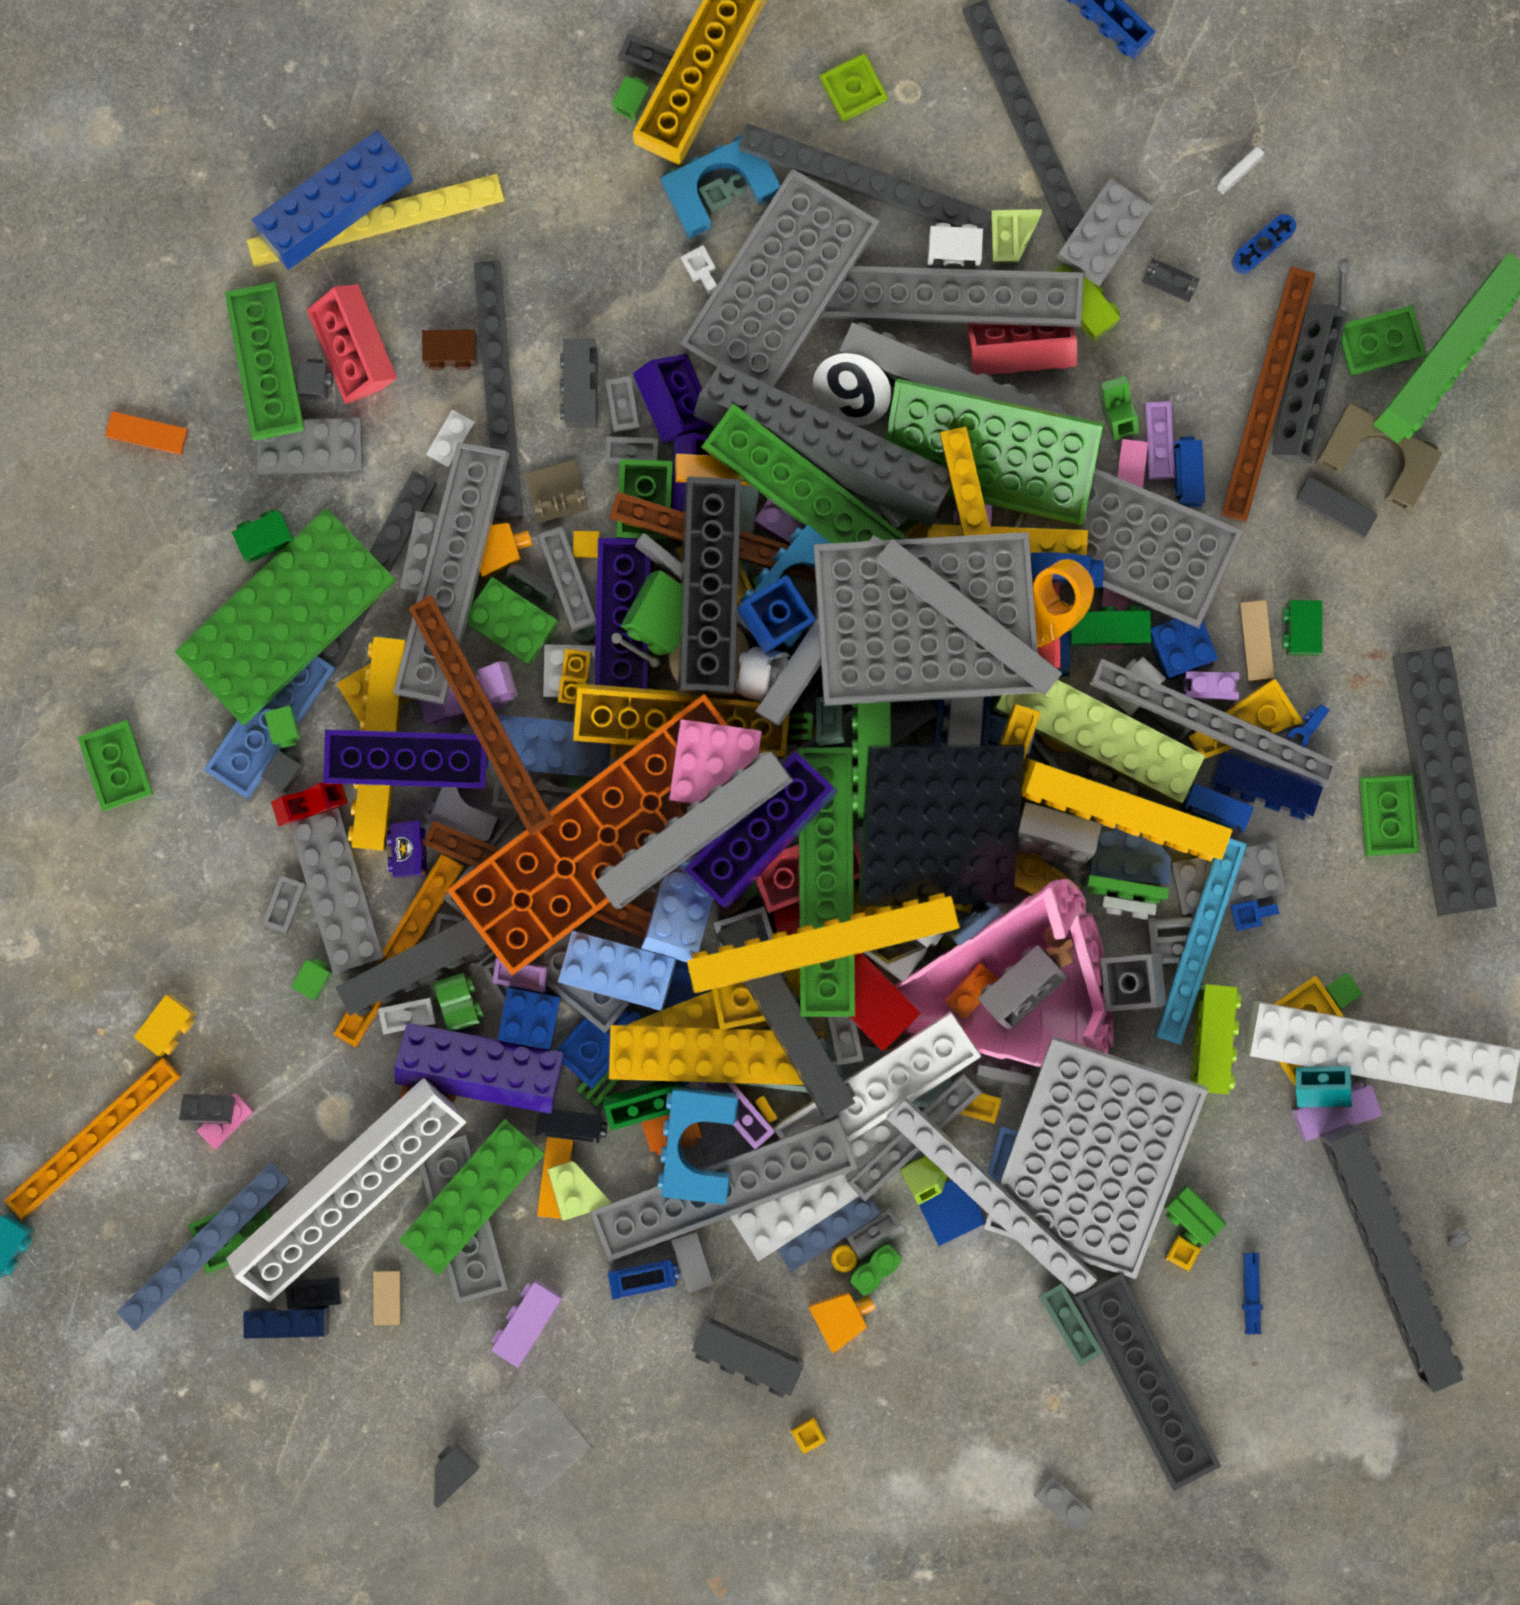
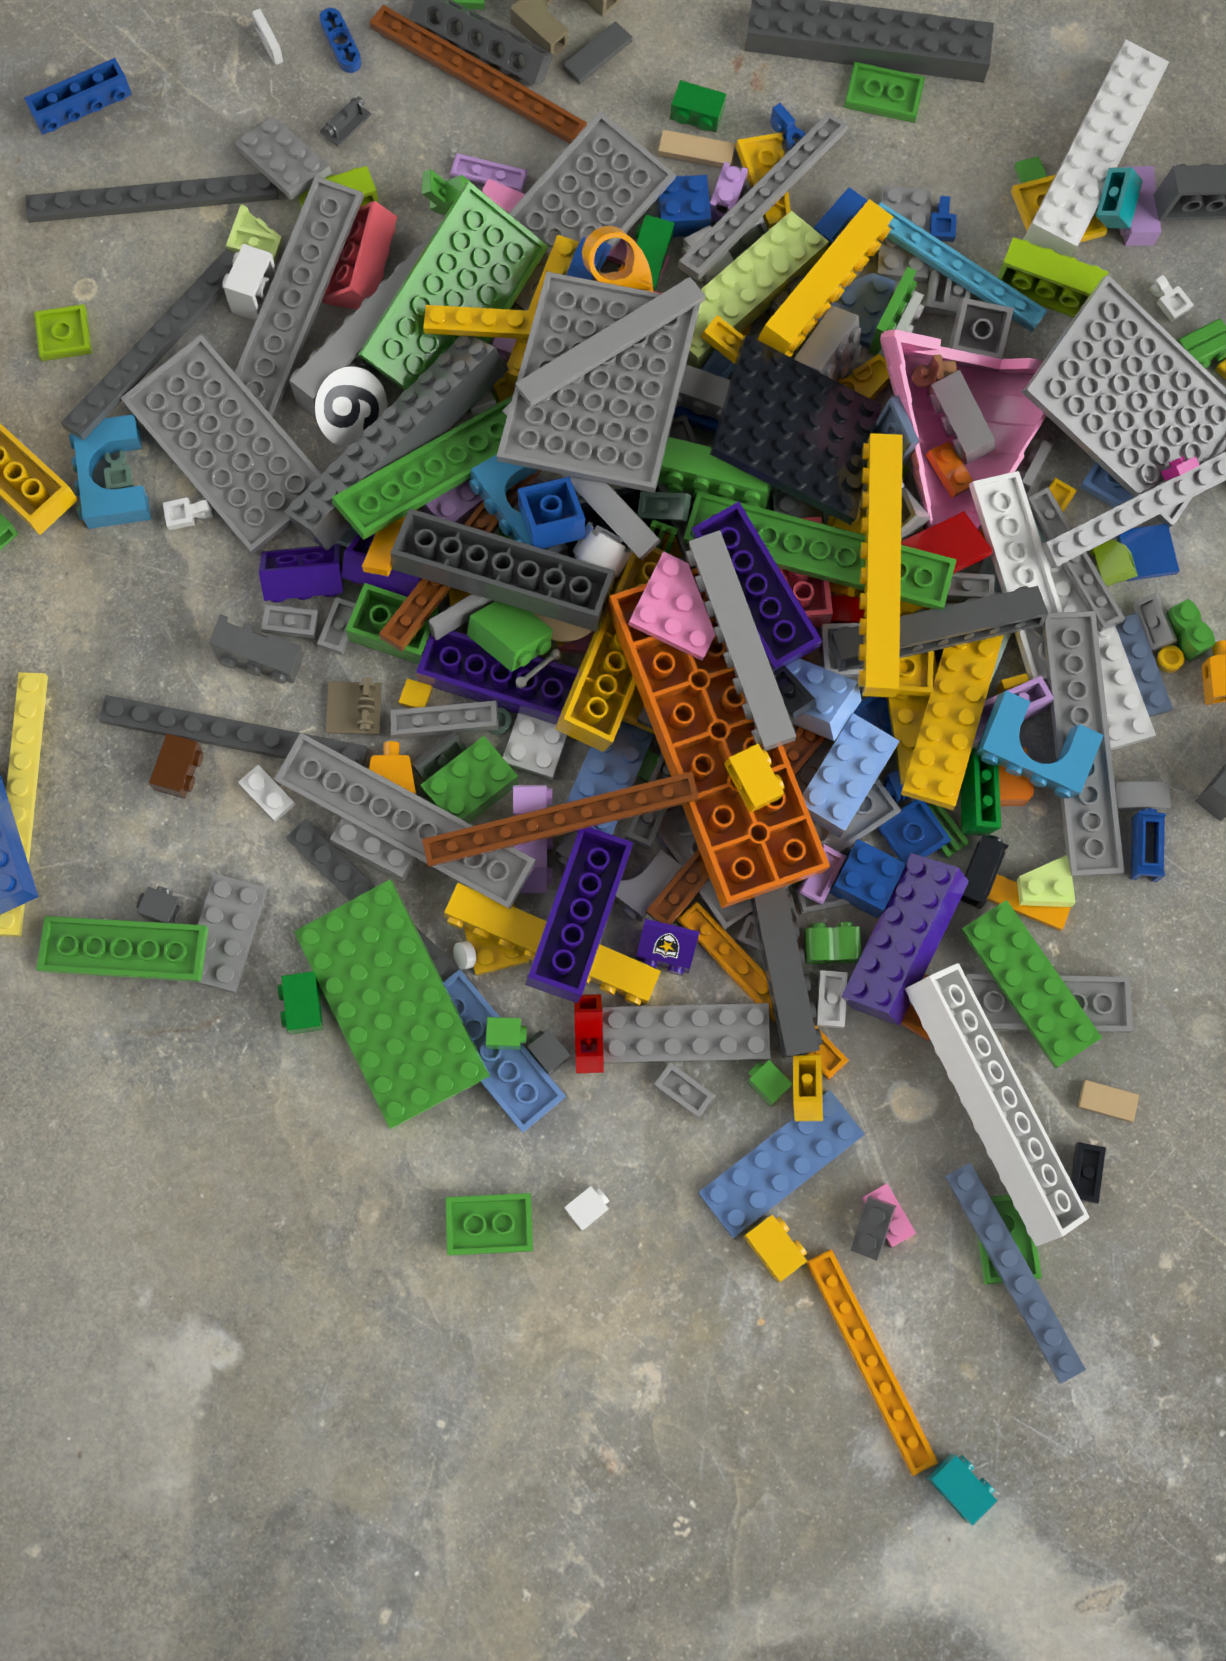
camera: 85 degrees left, 10 degrees down
(146, 433) = (152, 1094): orange tile -> none
(153, 847) = (587, 1207): none -> white brick
(244, 1011) = (779, 1166): none -> medium blue plate
(286, 1323) = (1110, 1224): dark blue arch -> none
(312, 1014) = (807, 1088): none -> yellow brick
(349, 668) = (464, 955): none -> white tile
(351, 343) = (135, 860): coral slope -> none
(525, 1322) = (1166, 969): lavender brick -> none
(567, 880) = (754, 778): none -> yellow brick
(575, 670) = (543, 738): yellow slope -> none
(666, 892) = (794, 694): none -> black plate
(1038, 1218) = (1179, 466): none -> dark pink plate
(1189, 471) = (525, 153): blue window -> none
(1237, 1173) = (1172, 301): none -> white plate
(1265, 785) = (830, 177): clear blue brick -> none

